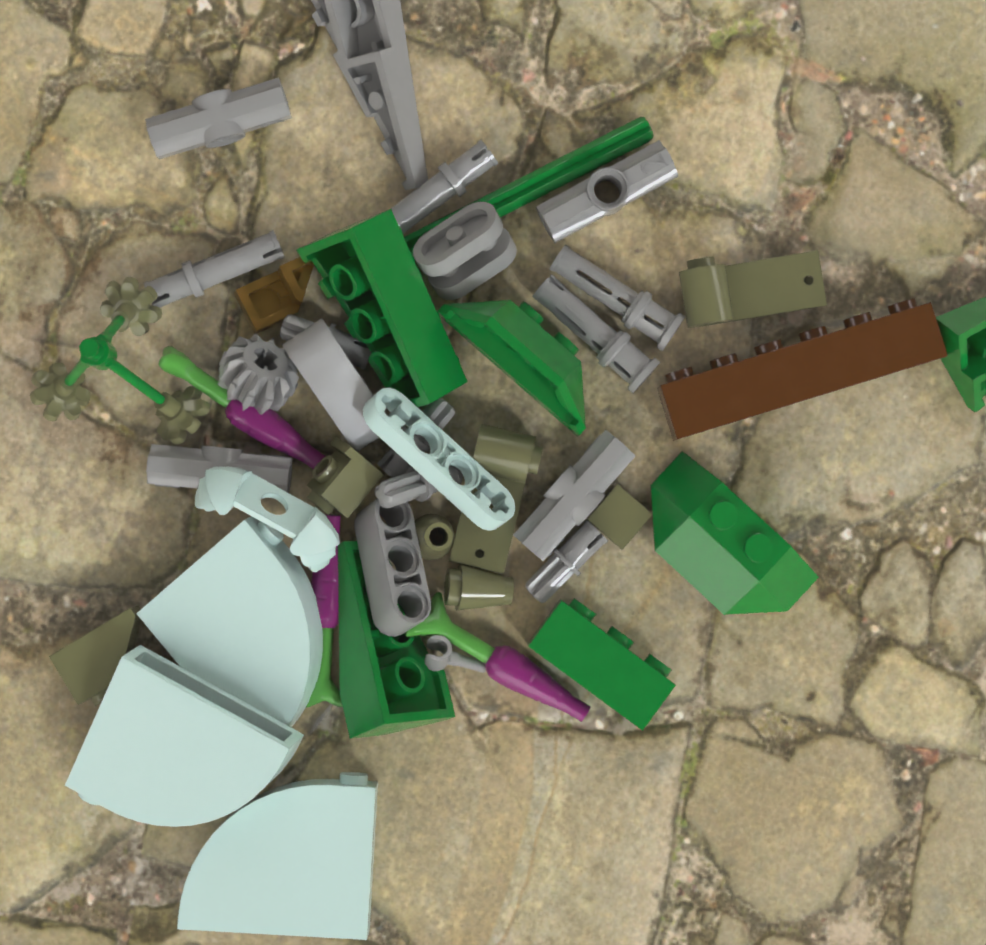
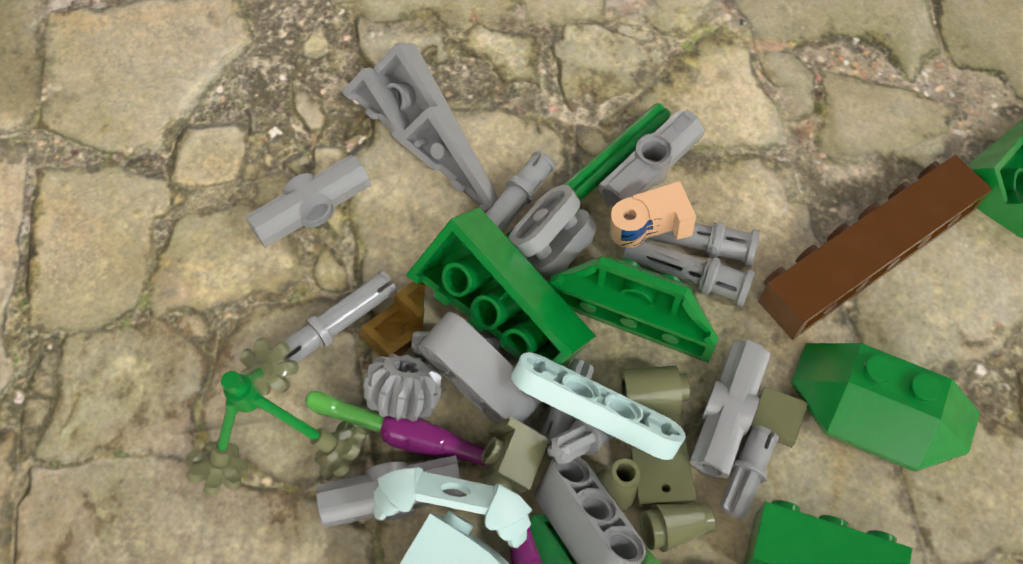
camera: 15 degrees left, 25 degrees down
(571, 268) = (652, 214): none -> light nougat leg
(750, 289) = (802, 199): olive door -> none

